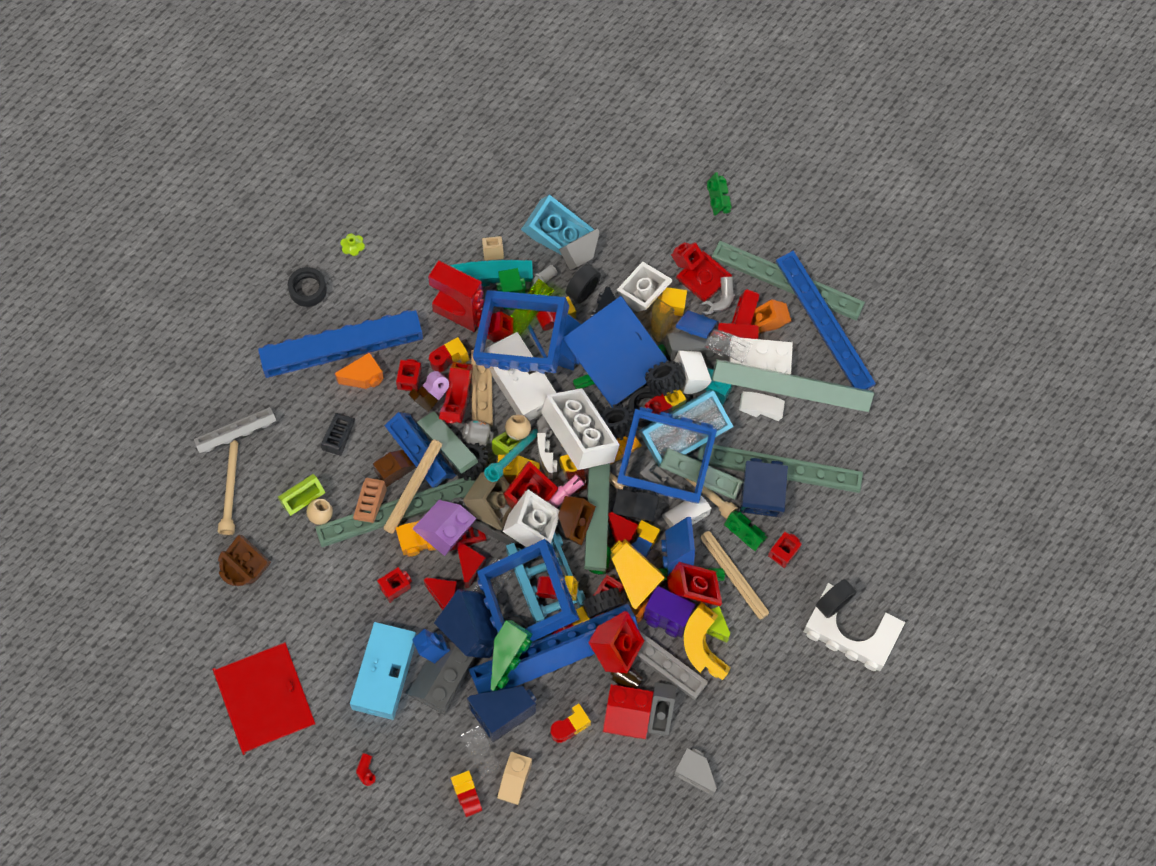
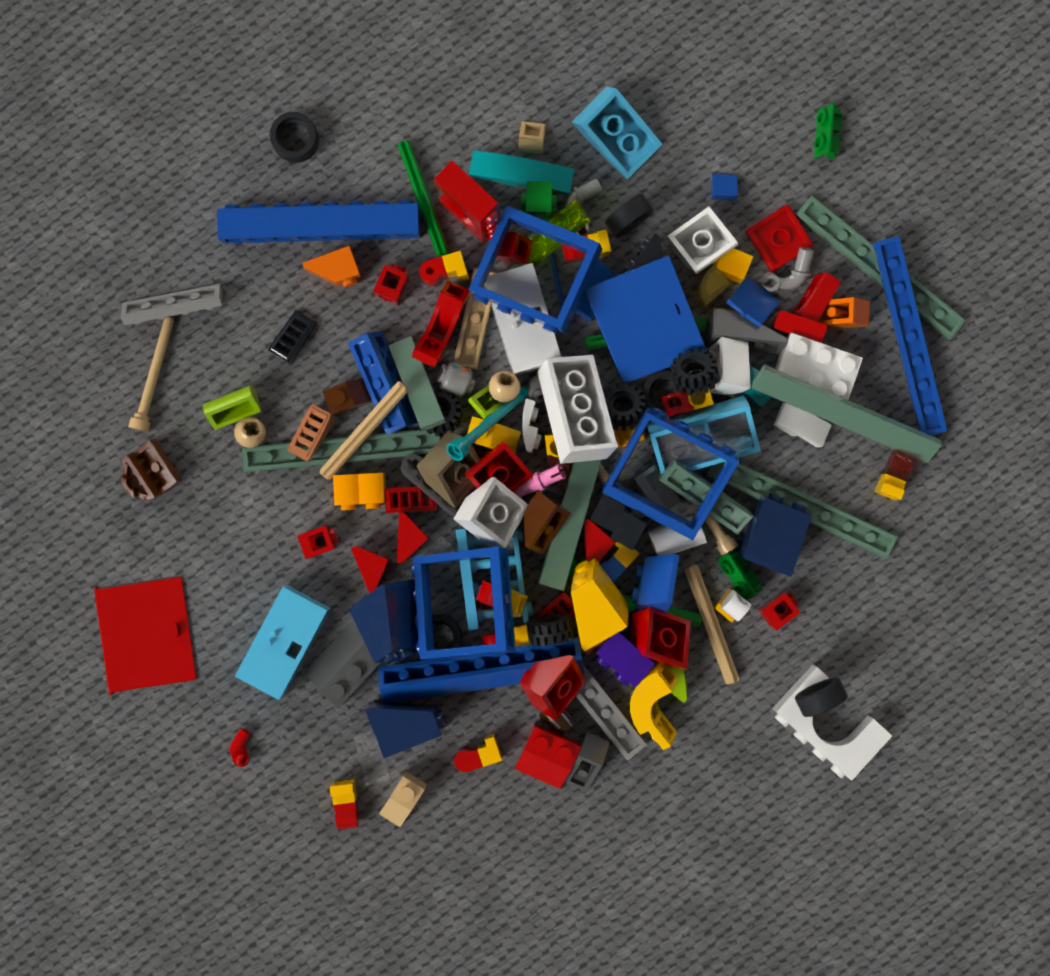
camera: 20 degrees right, 20 degrees up
(352, 244) = (363, 96): lime plant -> none
(416, 304) = (423, 198): none -> green axle
(431, 390) = (411, 313): leg -> none
(431, 645) = (340, 630): blue brick -> none
(444, 525) = (388, 489): medium lavender slope -> none
(508, 646) = (422, 668): slope -> none
(581, 250) = (637, 169): light grey slope -> none
(651, 250) = (724, 187): none -> blue slope
(686, 251) = (763, 202): red brick -> none
(696, 771) = (605, 842): light grey slope -> none
(728, 344) = (784, 345): clear slope -> none
(746, 554) = (732, 606): none -> white leg
(845, 427) = (895, 475): none -> leg

